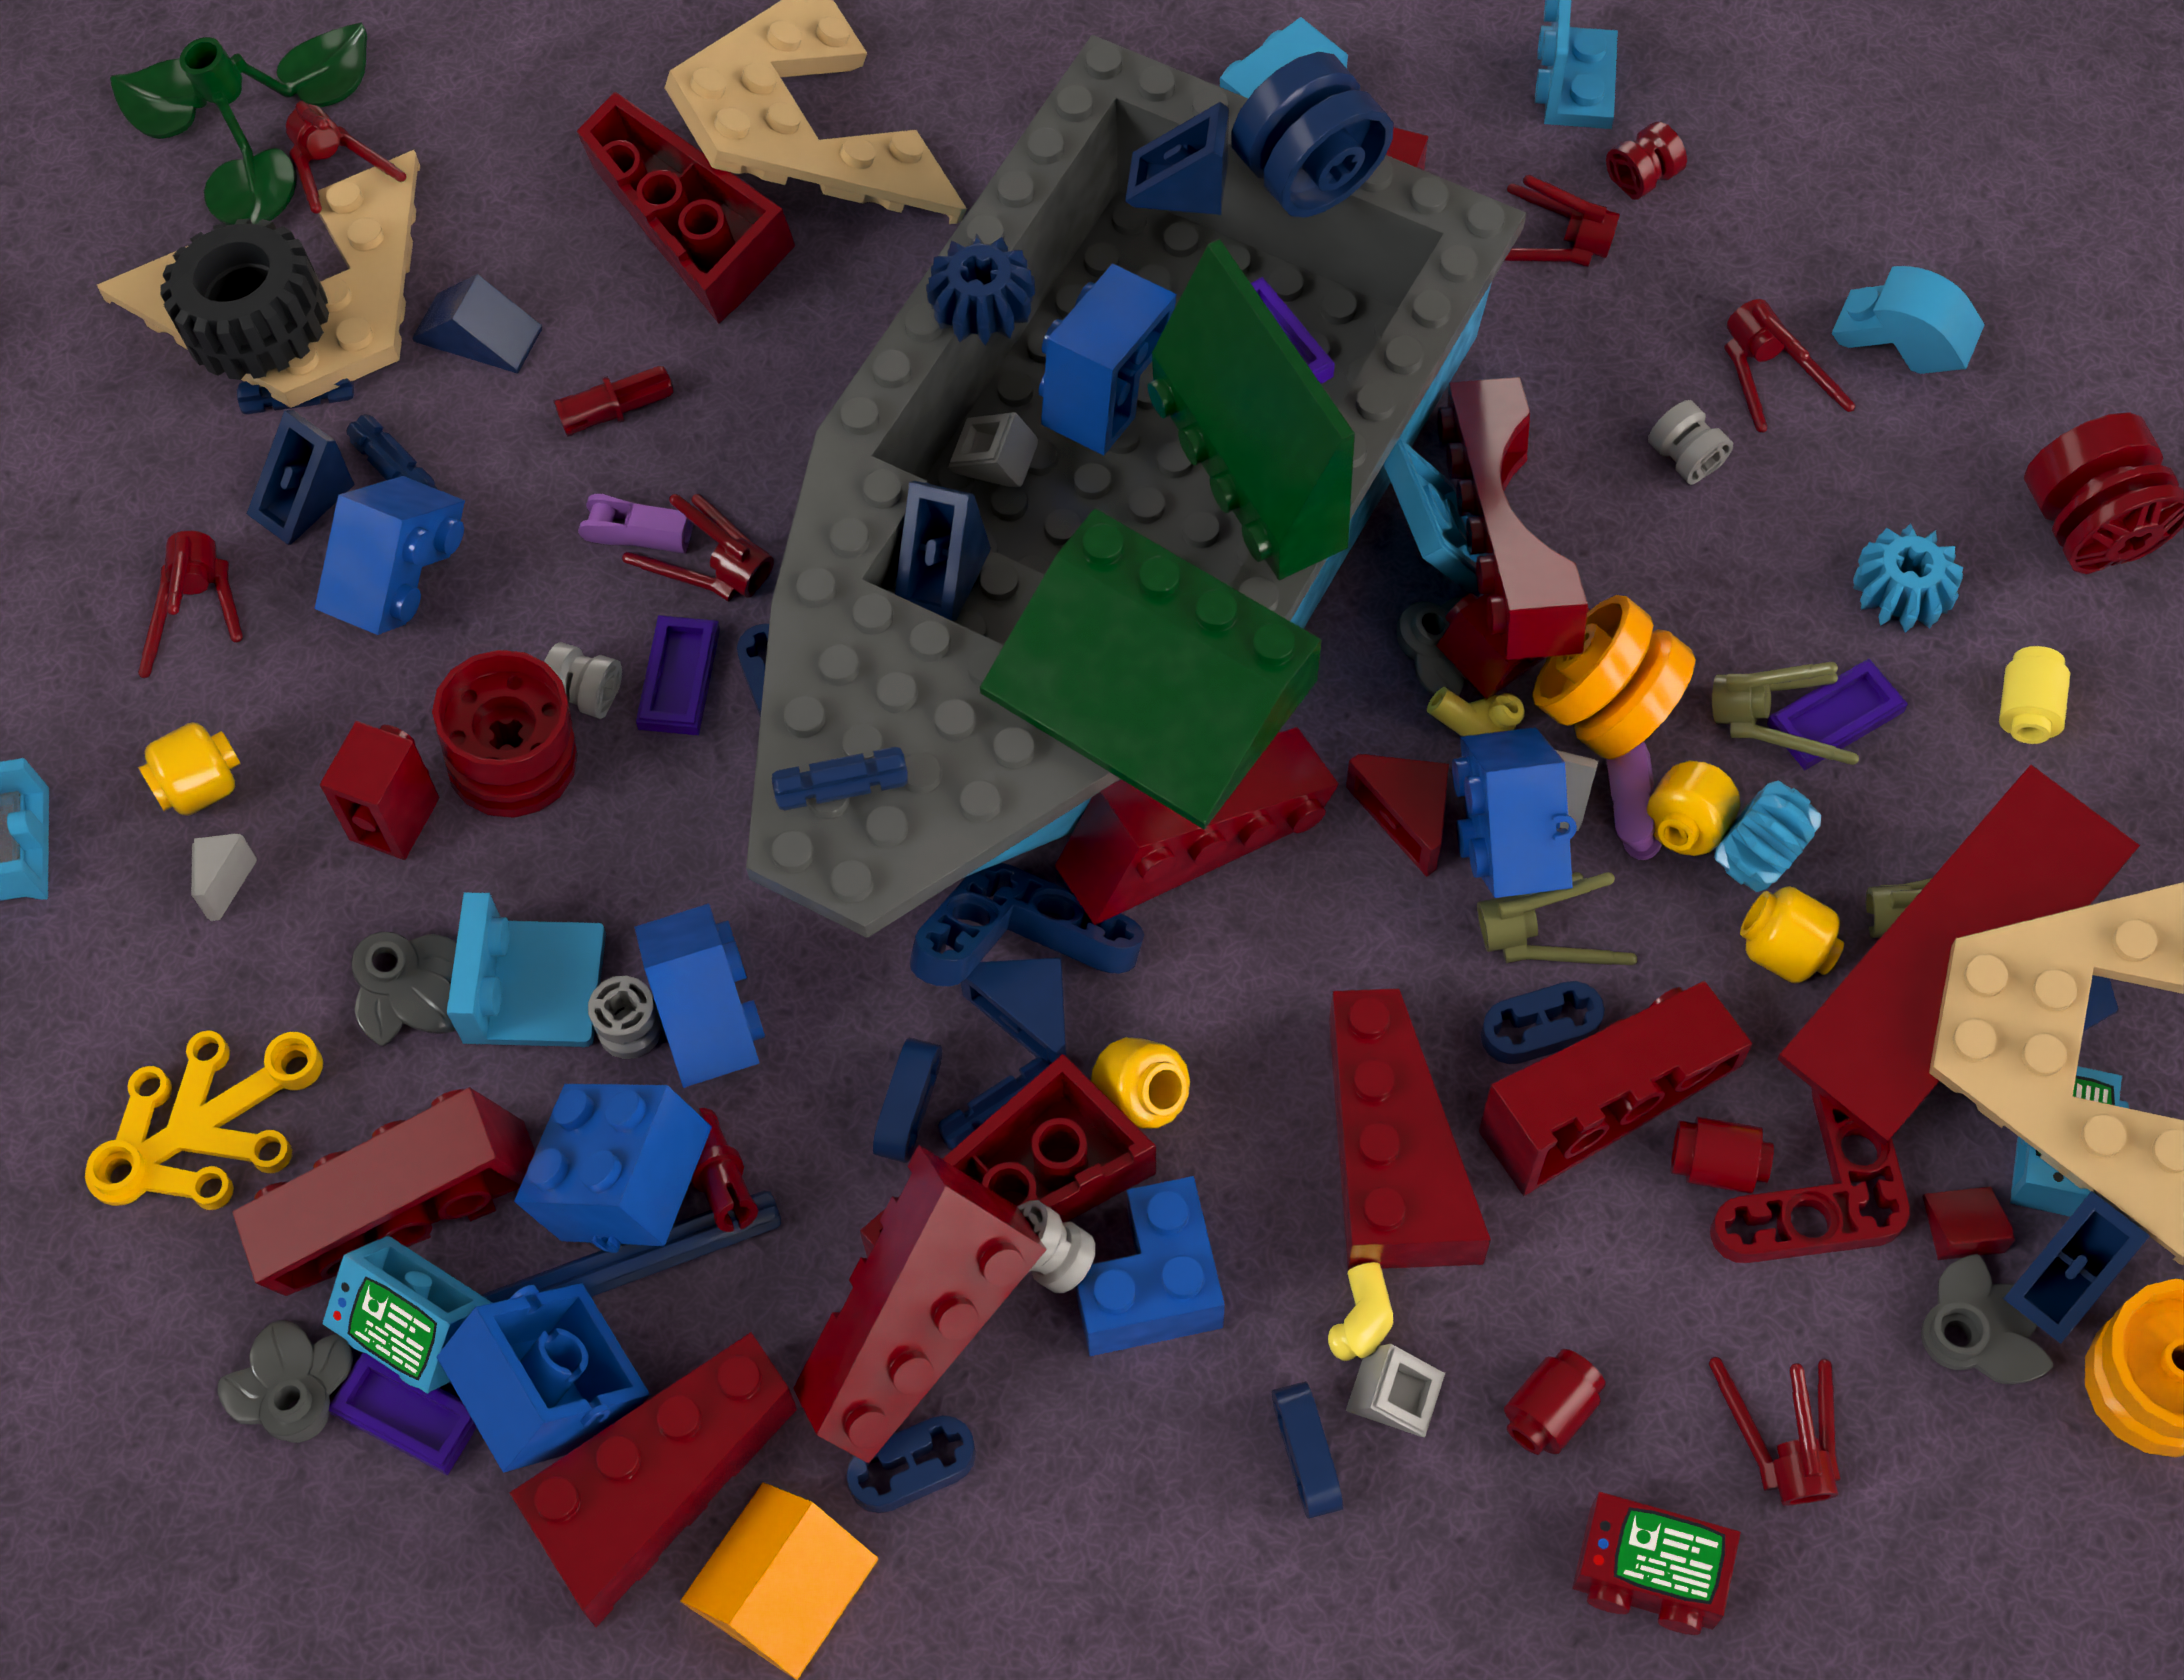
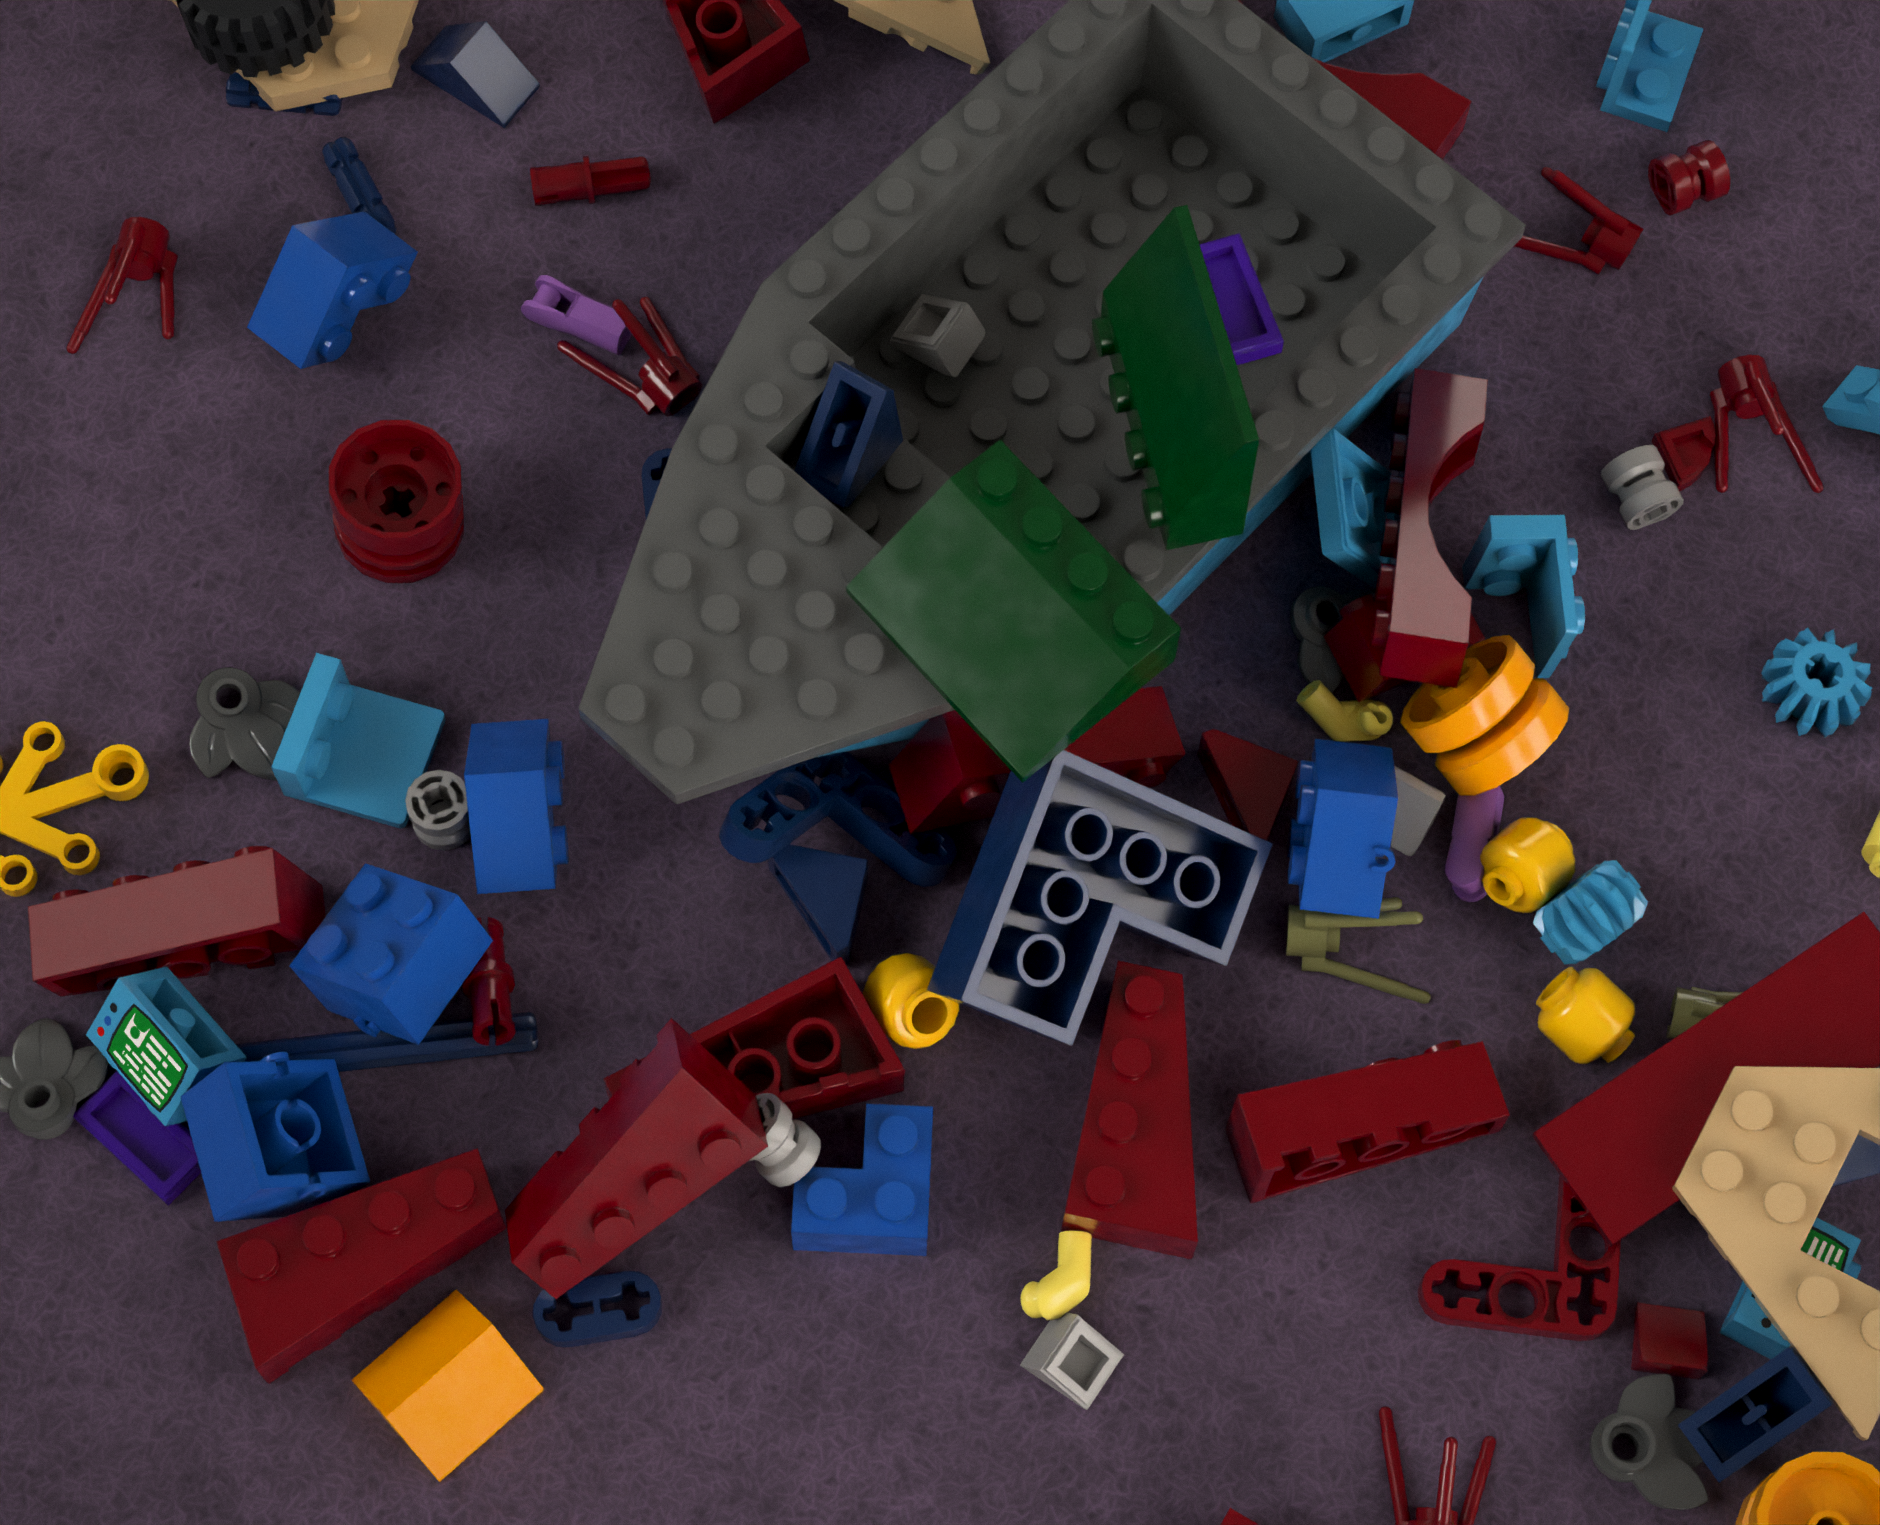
camera: 10 degrees right, 5 degrees up
(189, 769) = (90, 459): yellow head -> none
(219, 871) = (94, 569): light grey slope -> none
(298, 479) = (263, 190): dark blue slope -> none
(380, 789) = (264, 527): dark red brick -> none
(586, 680) = (486, 463): light grey wheel -> none
(678, 675) = (580, 479): dark purple tile -> none
(839, 778) = (687, 645): dark blue axle -> none
(907, 1100) = (686, 959): dark blue beam -> none
(960, 1125) = (731, 997): dark blue axle -> none
(980, 289) = (956, 180): dark blue gear -> none
(1099, 357) = (1063, 268): blue brick -> none
(1184, 166) = (1193, 98): dark blue slope -> none
(1263, 912) = (1070, 865): none -> dark blue brick
(1307, 1450) = (970, 1394): dark blue beam -> none
(1311, 134) = (1325, 100): dark blue wheel -> none
(1538, 1008) = (1319, 1054): dark blue beam -> none
(1554, 1402) = (1216, 1411): dark red brick -> none
(1620, 525) = (1537, 556): none -> dark azure bracket
(1720, 399) = (1686, 450): none -> dark red tile
(1721, 1154) = (1450, 1214): dark red brick -> none
(1746, 697) = (1618, 765): olive plant -> none
(1840, 711) = (1703, 803): dark purple tile -> none

